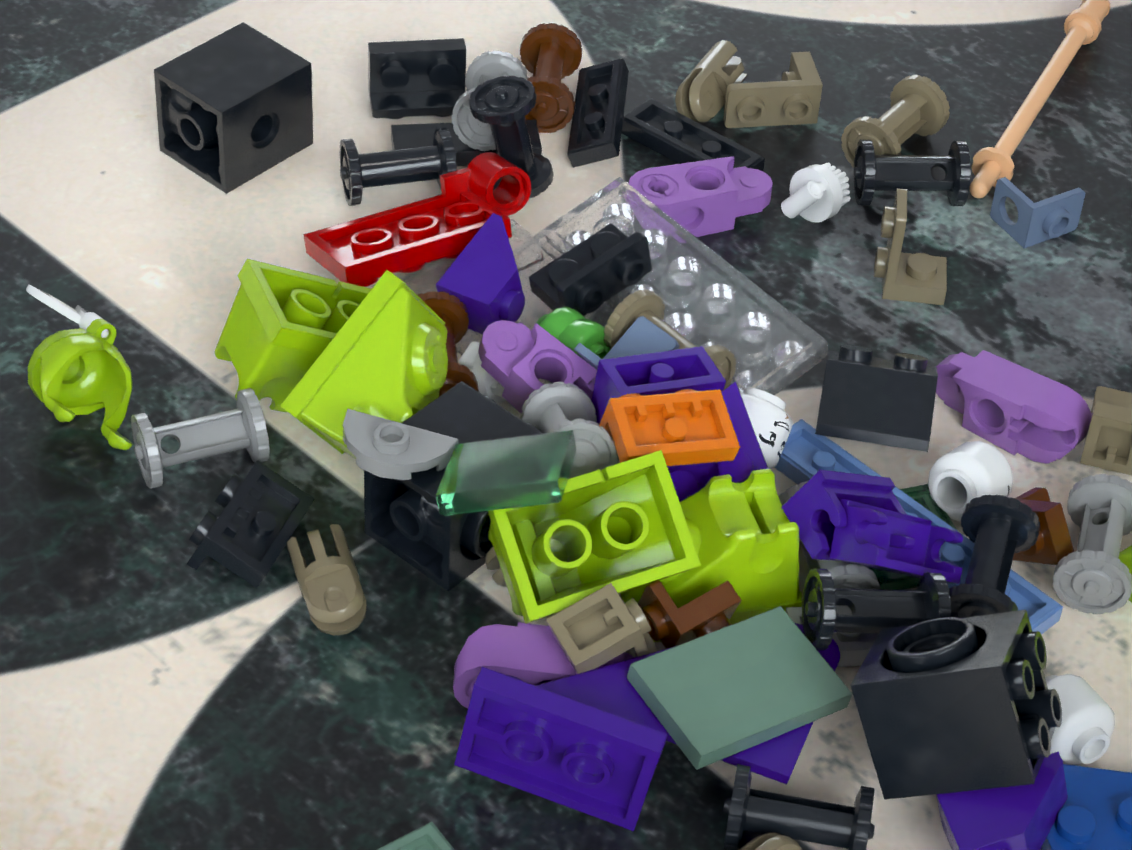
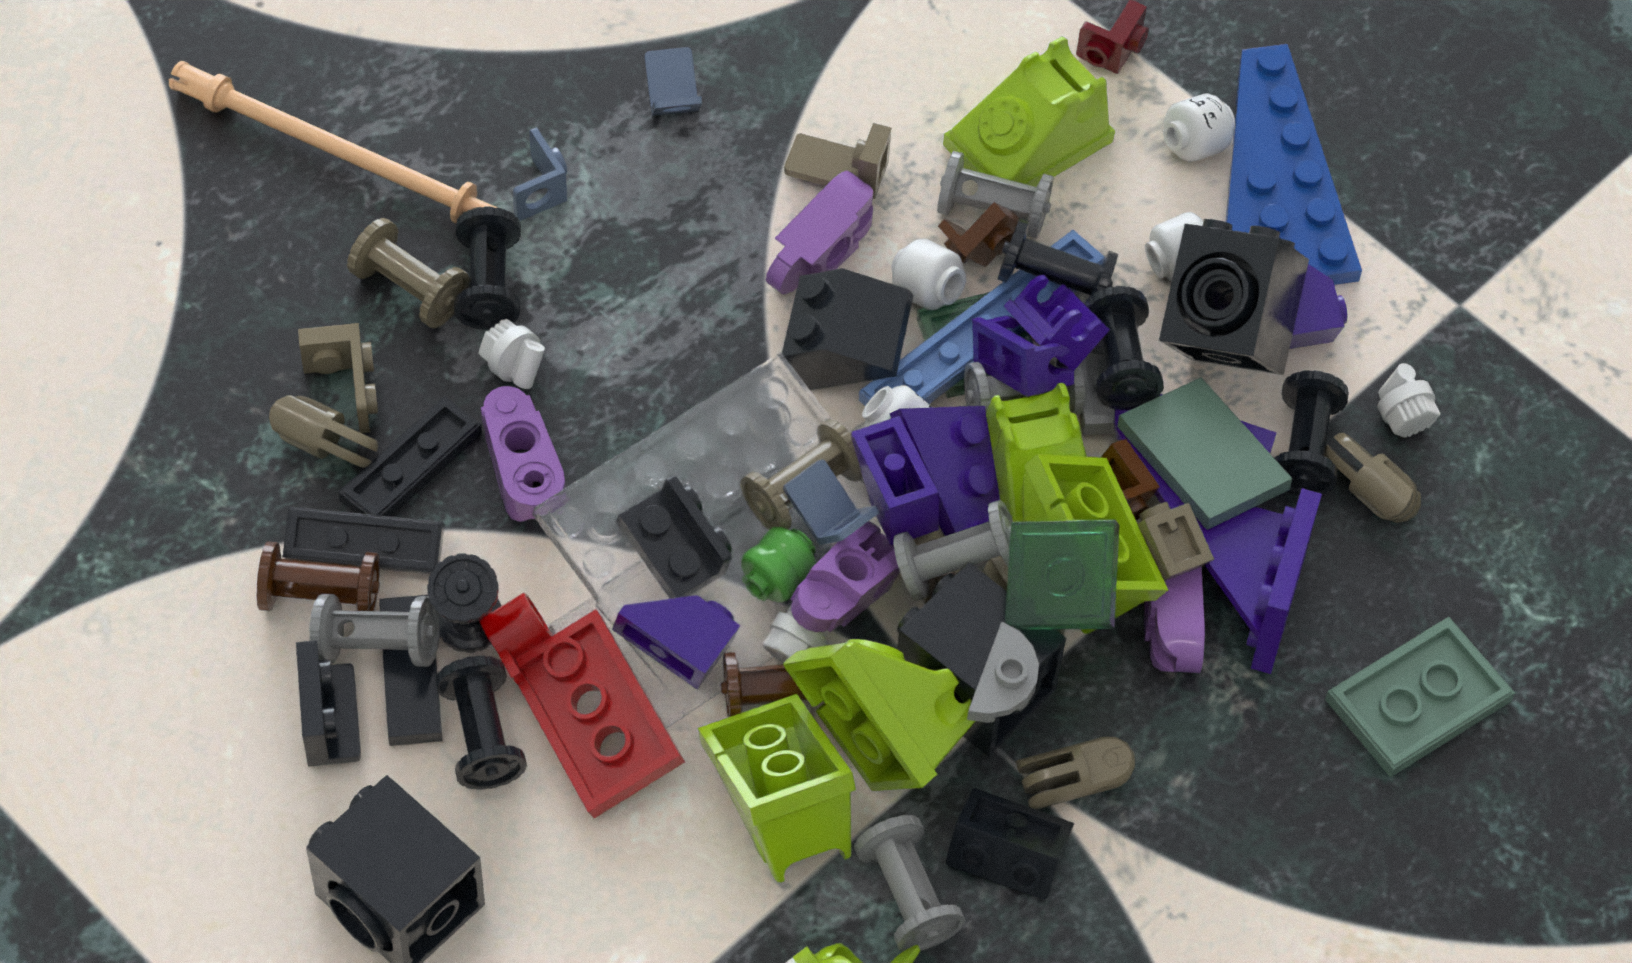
camera: 90 degrees left, 15 degrees up
(683, 424) = (977, 459): orange bracket -> none
(907, 275) = (622, 288): dark tan bracket -> none

